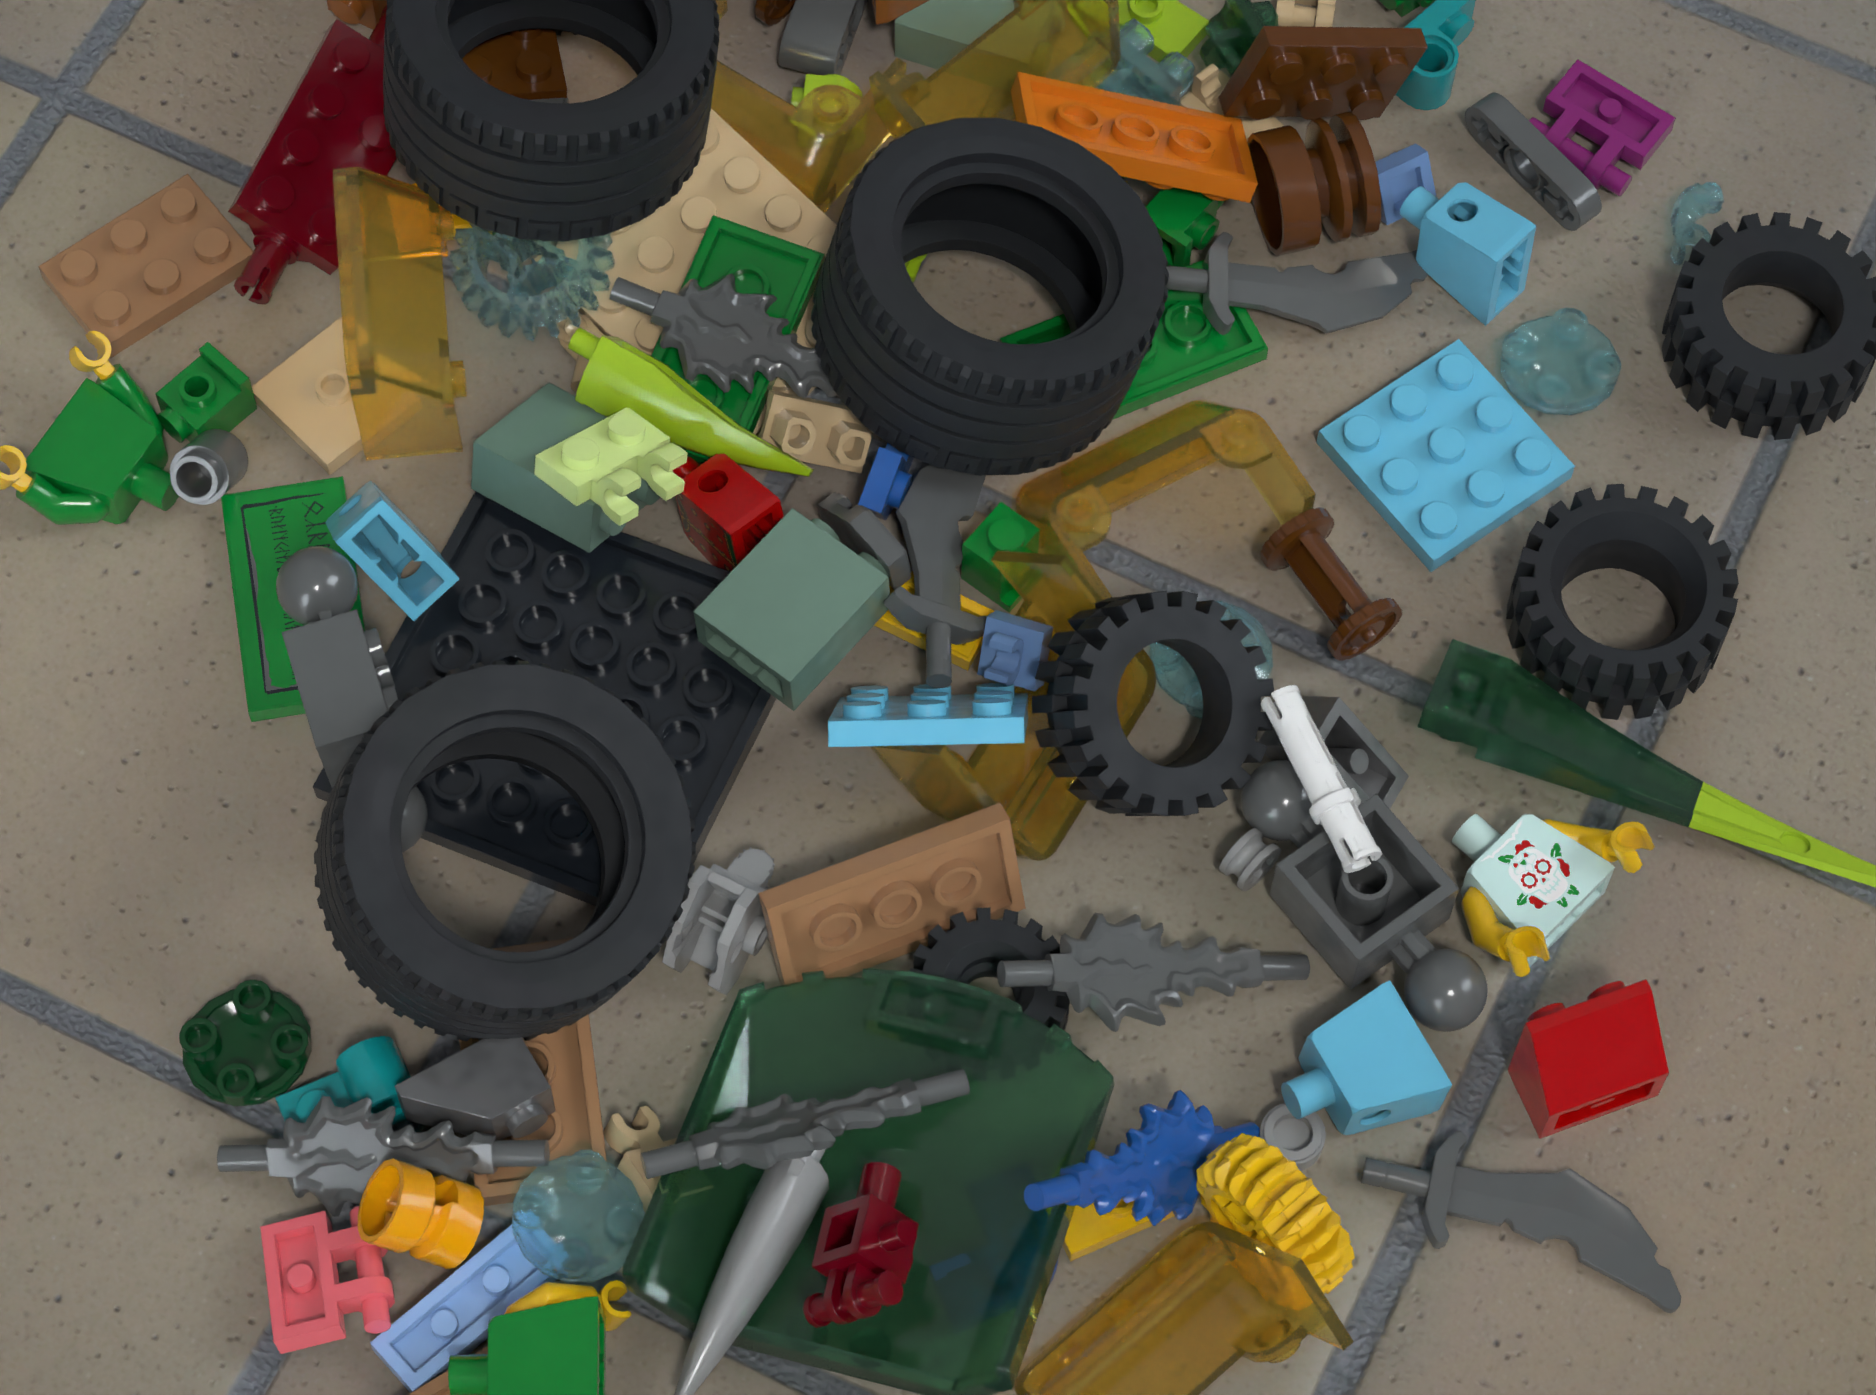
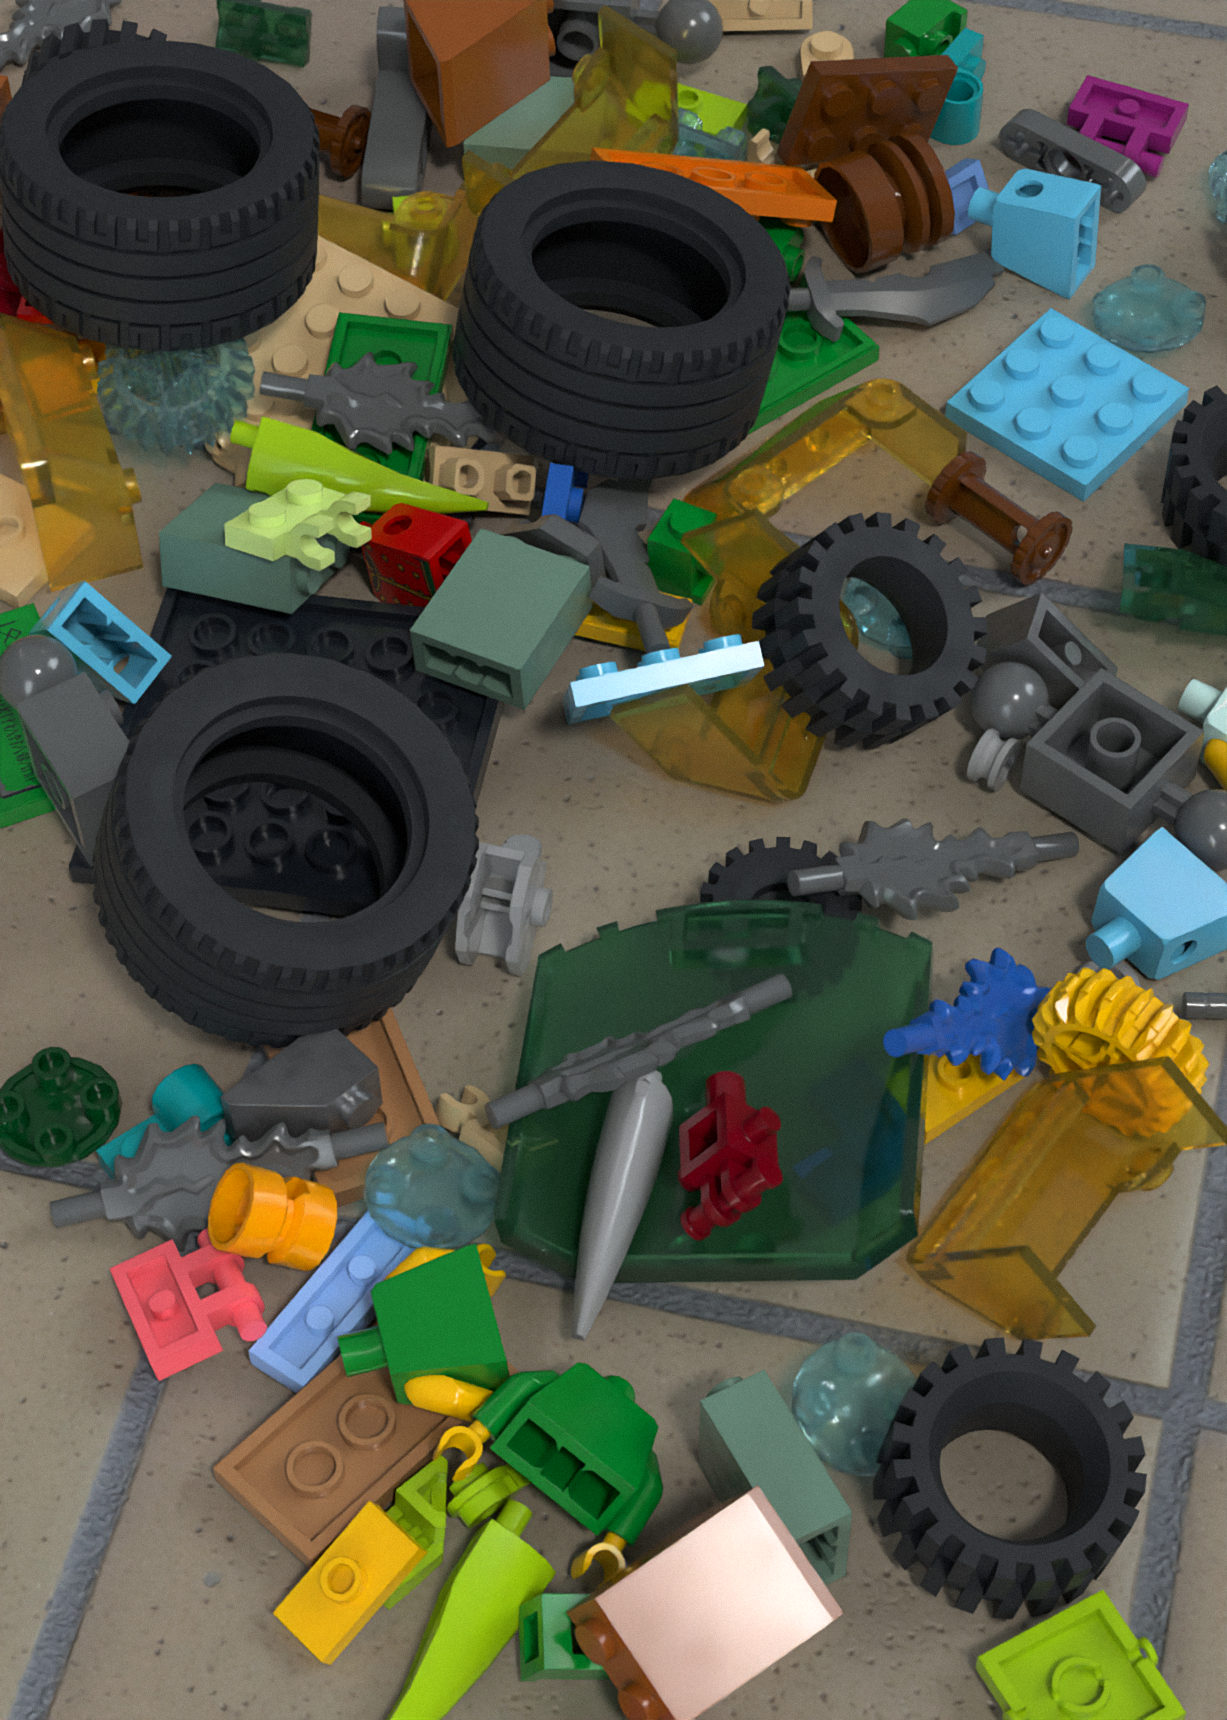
camera: 10 degrees left, 10 degrees down
(892, 897) = (663, 843): medium nougat plate -> none
(1013, 650) = (719, 615): medium blue tile -> none
(1331, 800) = (1065, 676): white pin -> none

